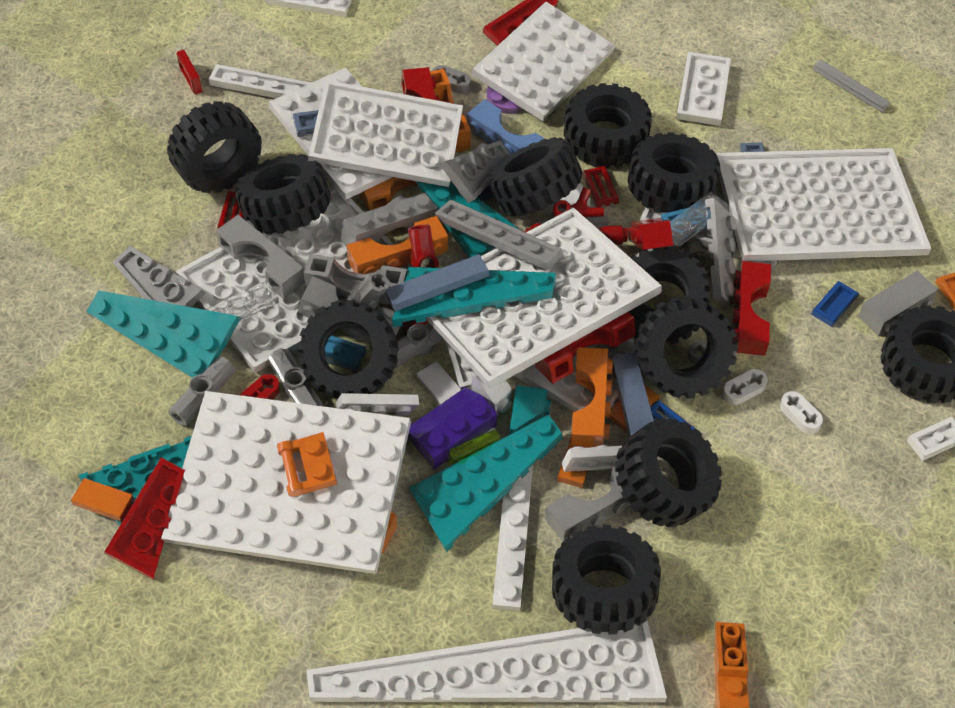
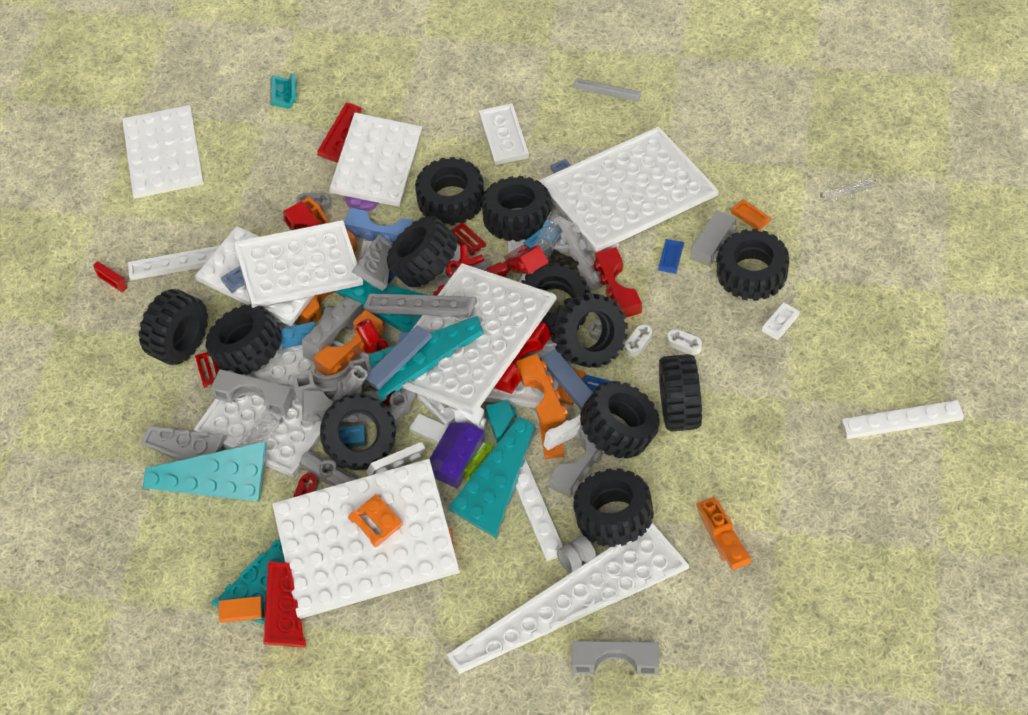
camera: 20 degrees left, 0 degrees up
(211, 380) = (262, 515): light grey piece -> none
(340, 210) = (294, 335): none -> dark azure plate
(533, 616) = (574, 555): none -> light grey wheel
(761, 472) = (680, 392): none -> black tyre

